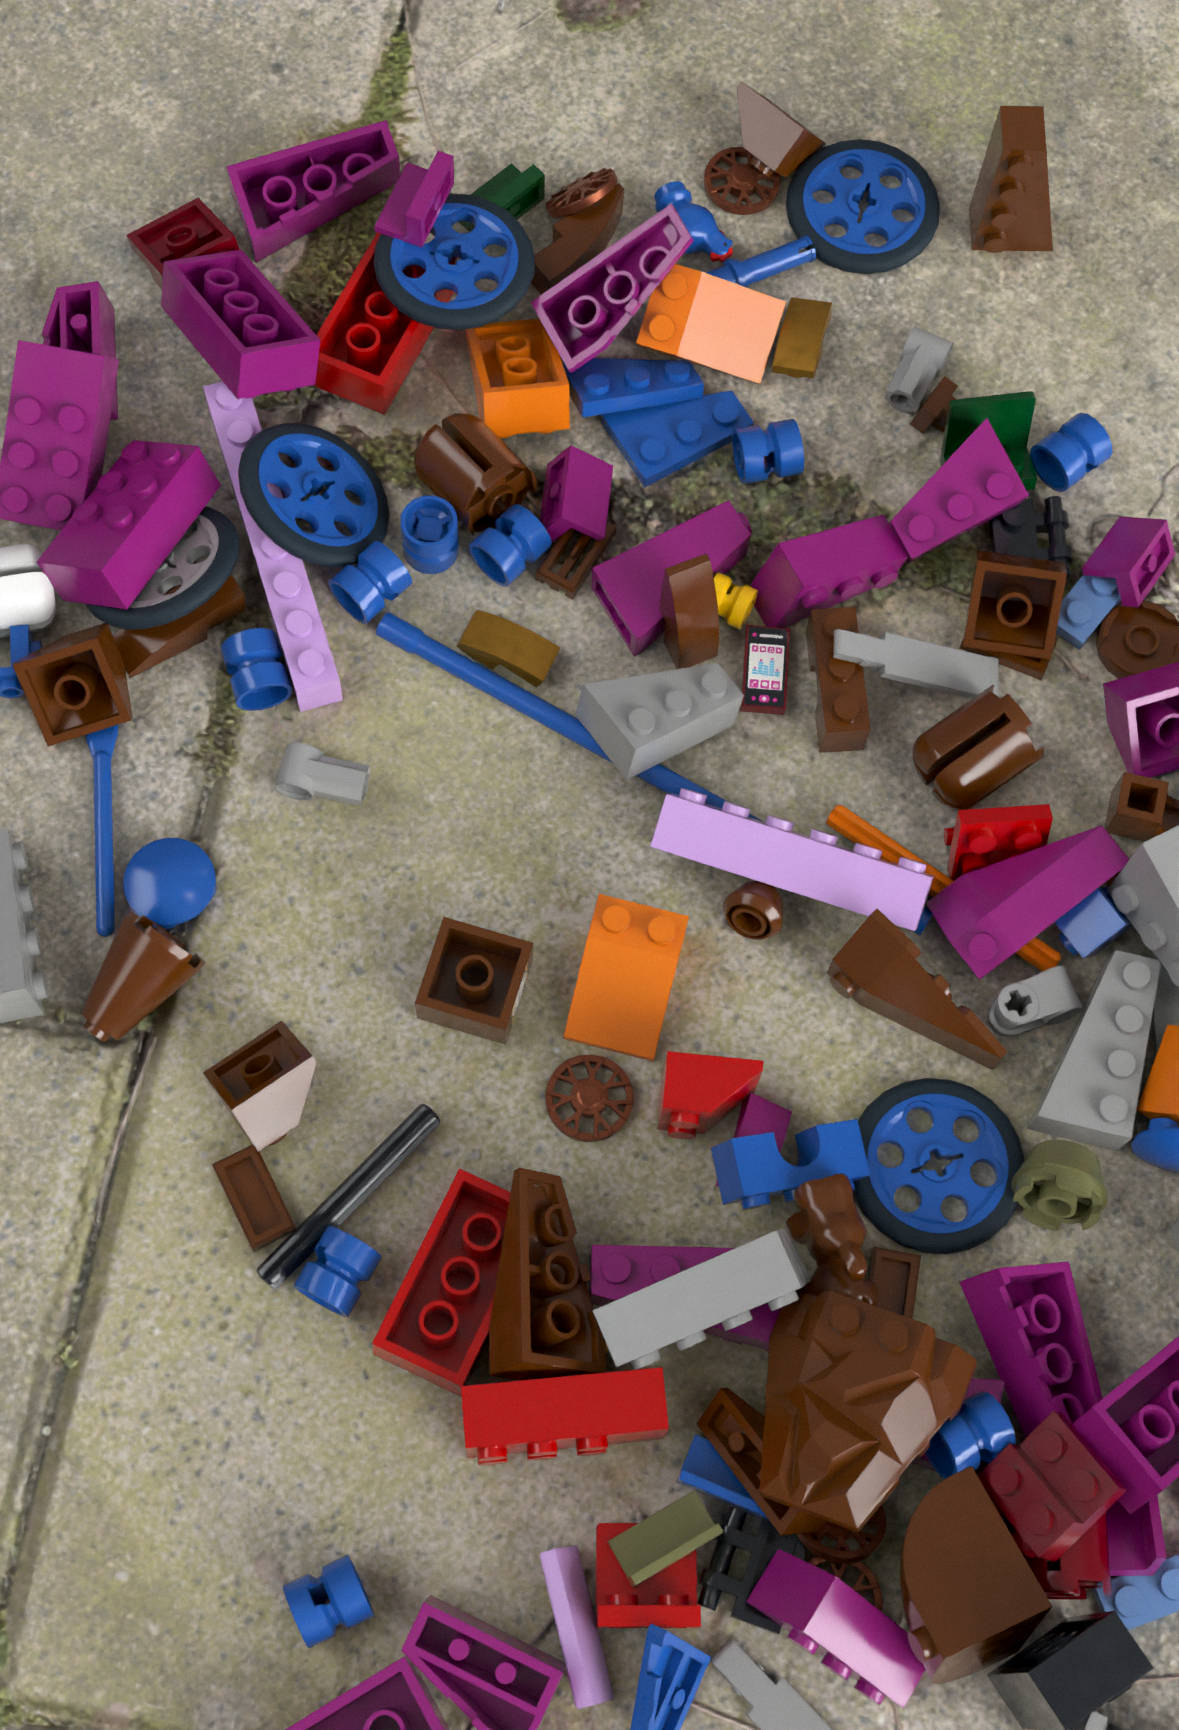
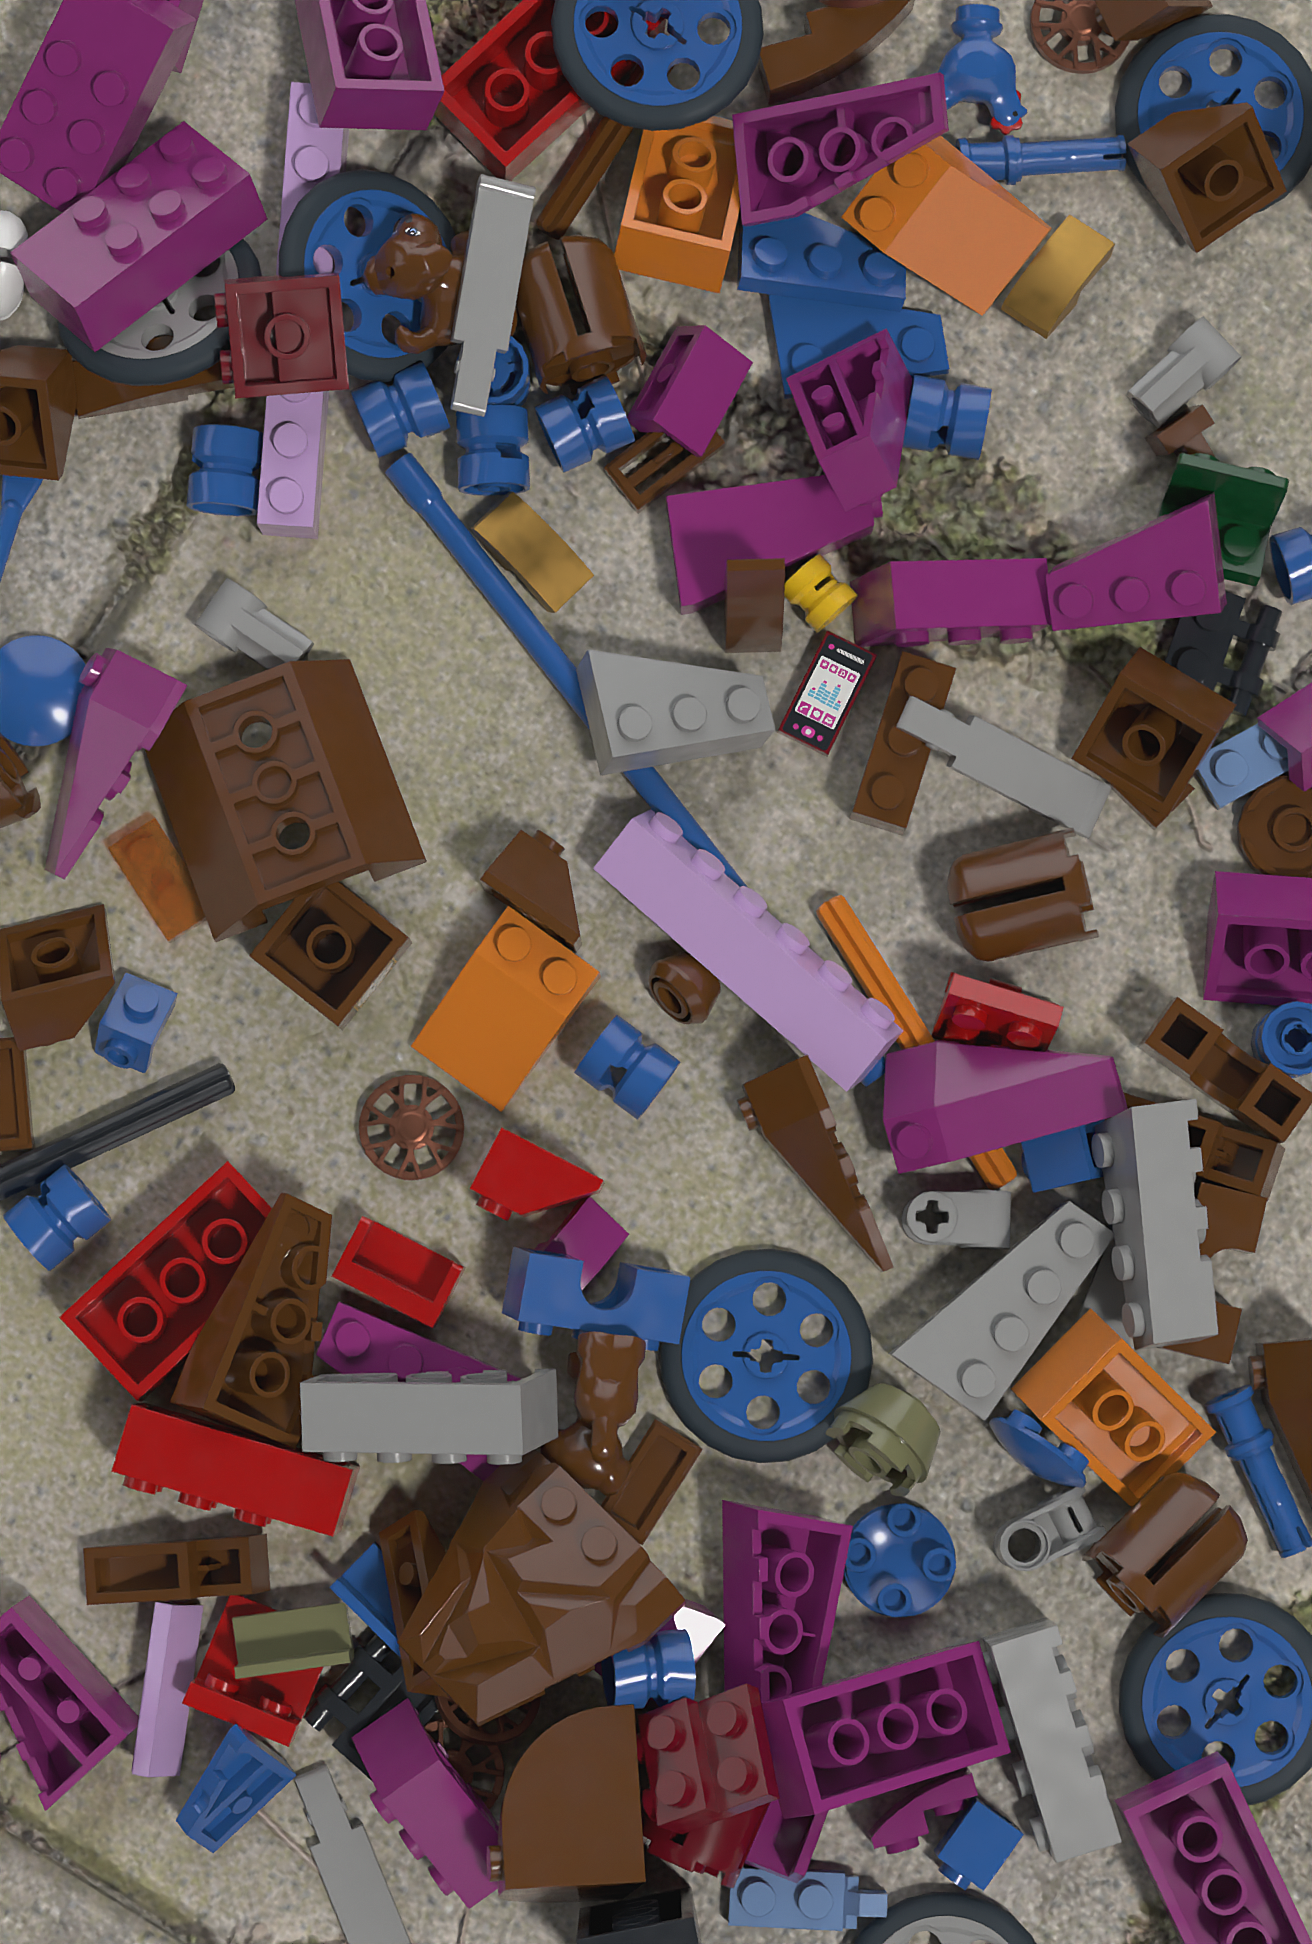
camera: 25 degrees right, 15 degrees up
(238, 870) = (114, 716): none -> magenta wedge
(265, 541) = (283, 335): none -> dark red plate
(321, 985) = (160, 879): none -> clear orange plate
(340, 1100) = (134, 1023): none -> blue bracket
(356, 894) = (315, 771): none -> reddish brown slope
(365, 468) = (419, 266): none -> reddish brown animal
(405, 466) = (489, 287): none -> light grey piece
(440, 377) = (585, 172): none -> reddish brown axle
(450, 584) = (493, 451): none -> blue wheel
(543, 1522) = (177, 1569): none -> reddish brown slope
(616, 872) = (536, 885): none -> reddish brown slope
(626, 1212) = (398, 1272): none -> red panel
(704, 466) = (856, 417): none -> magenta wedge
(754, 989) = (627, 1067): none -> blue wheel
(875, 230) = (1208, 169): none -> reddish brown slope
(1113, 1281) = (899, 1560): none -> blue dish

